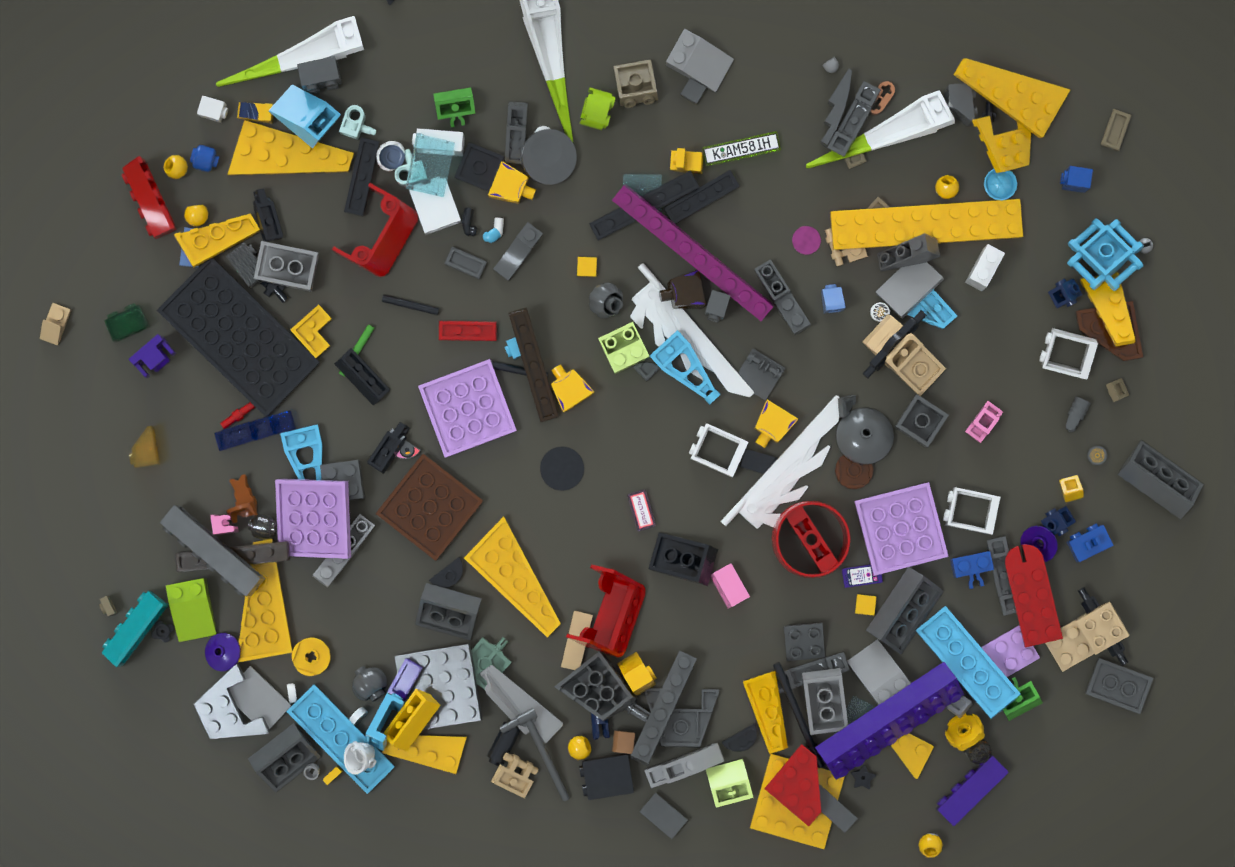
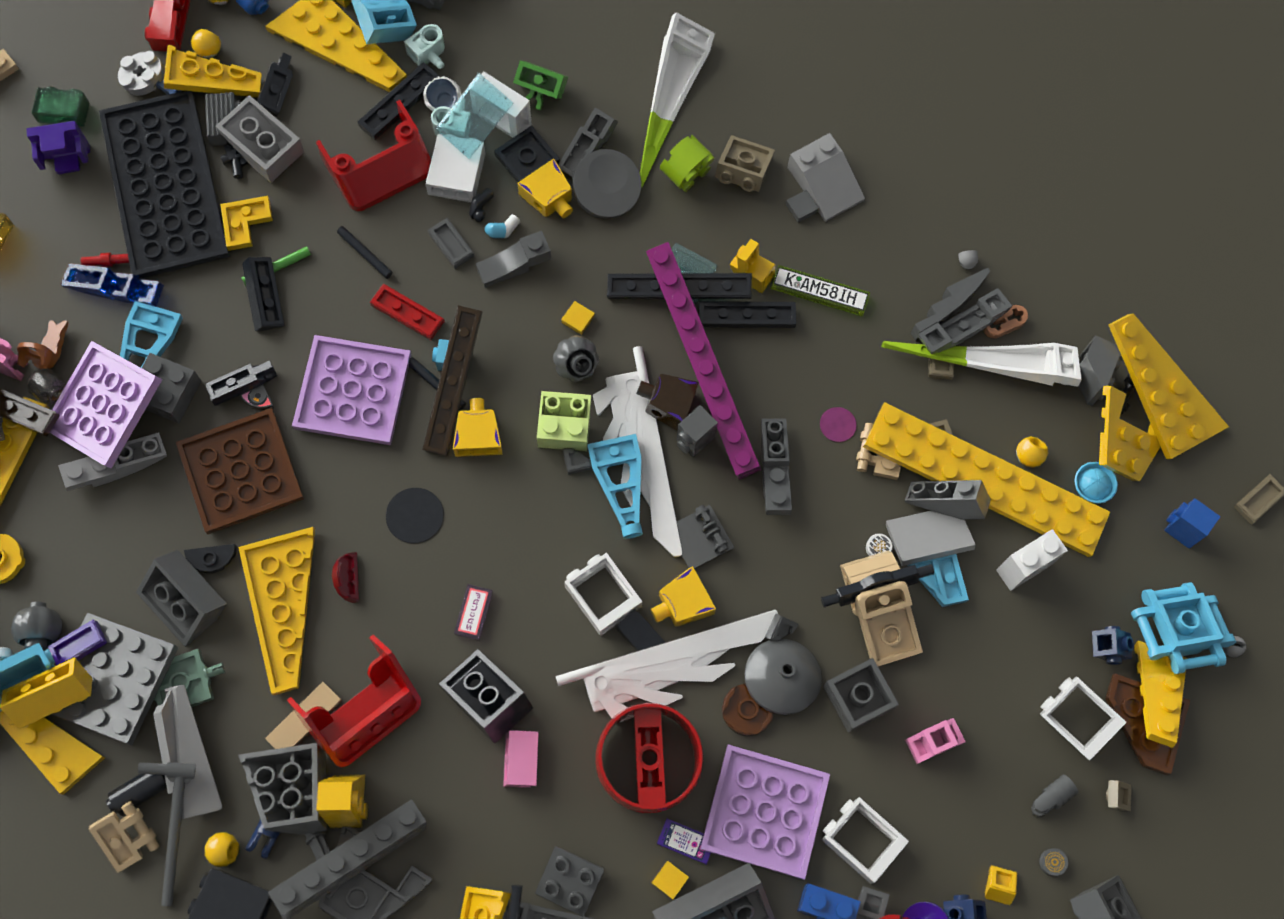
camera: 25 degrees right, 15 degrees down
(154, 262) = (133, 65): none -> light grey plate
(545, 535) = (346, 577): none -> dark red plate
(623, 741) = (276, 872): medium nougat piece -> none
(832, 299) = (832, 501): medium blue slope -> none

